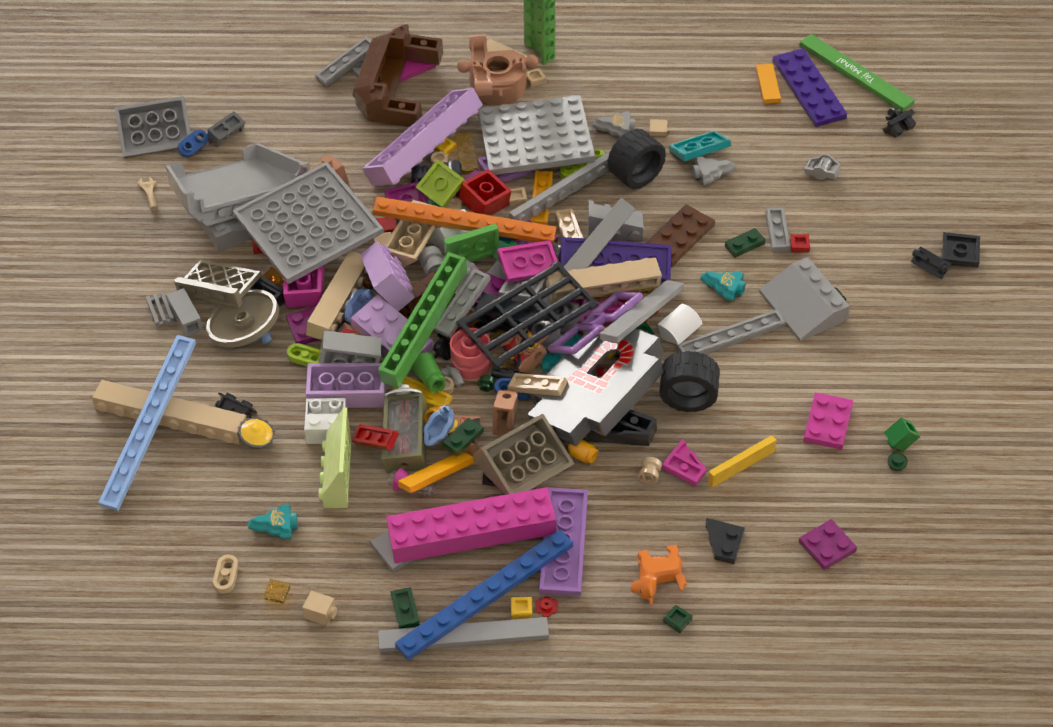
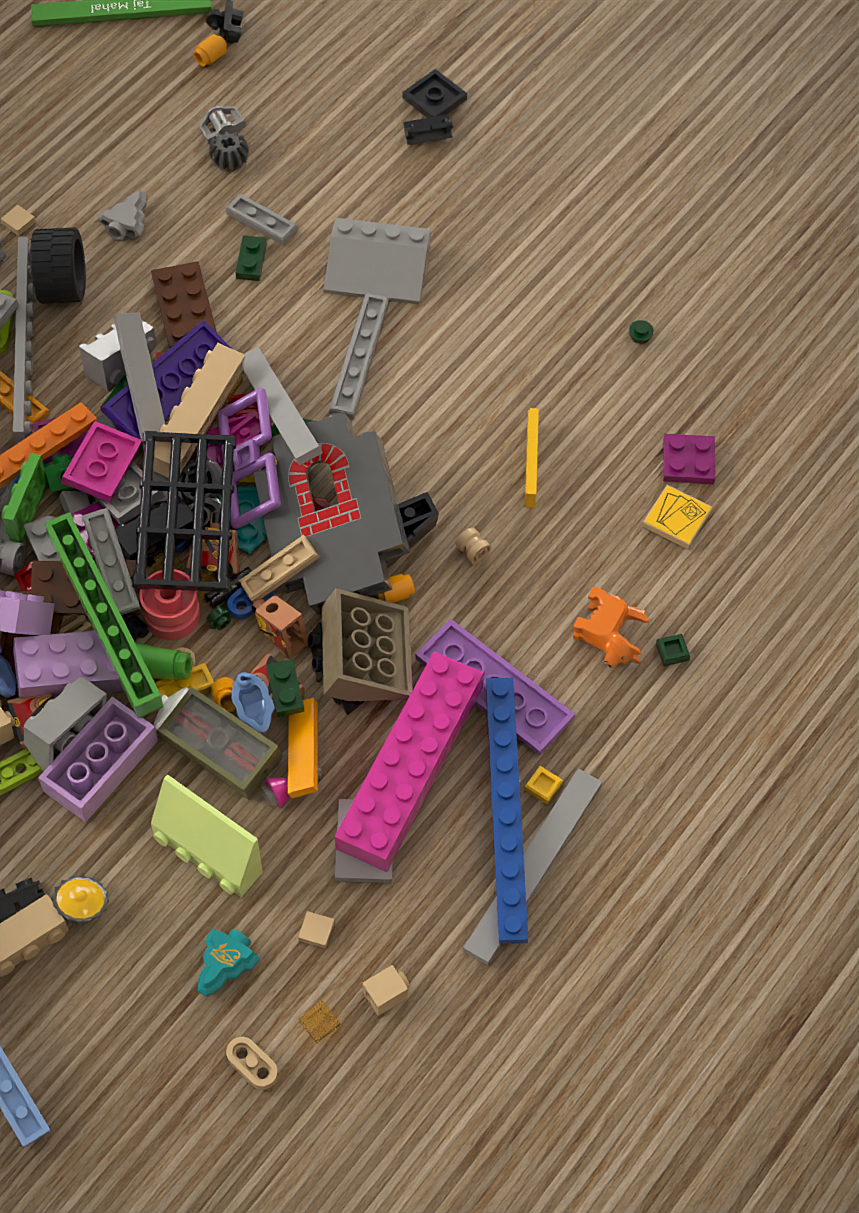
camera: 55 degrees left, 10 degrees up
(319, 417) = (125, 813): white slope -> none
(331, 554) = (316, 929): none -> tan tile
(375, 437) = (213, 772): red tile -> none
(405, 608) = (455, 900): dark green plate -> none
(453, 373) = (178, 640): light grey arm -> none
(544, 610) = (559, 766): red plant -> none
(568, 224) = (73, 392): tan tile -> none
(679, 324) = (310, 388): white brick -> none
(684, 464) = (491, 509): dark pink wing -> none
(689, 381) = (408, 427): black tyre -> none
(699, 145) = (87, 200): teal tile -> none
(724, 539) = (611, 541): black wing -> none
(726, 283) = (291, 310): teal rock -> none
(768, 83) = (58, 87): light orange tile -> none
(777, 563) = (677, 516): none -> yellow tile
(800, 243) = (300, 213): red plate -> none
(807, 182) = (228, 150): none -> dark grey gear
(809, 87) = (100, 58): dark purple plate -> none
(828, 420) = (541, 351): dark pink plate -> none
(870, 128) = (210, 50): none -> light orange brick
(901, 434) = (619, 304): green brick -> none

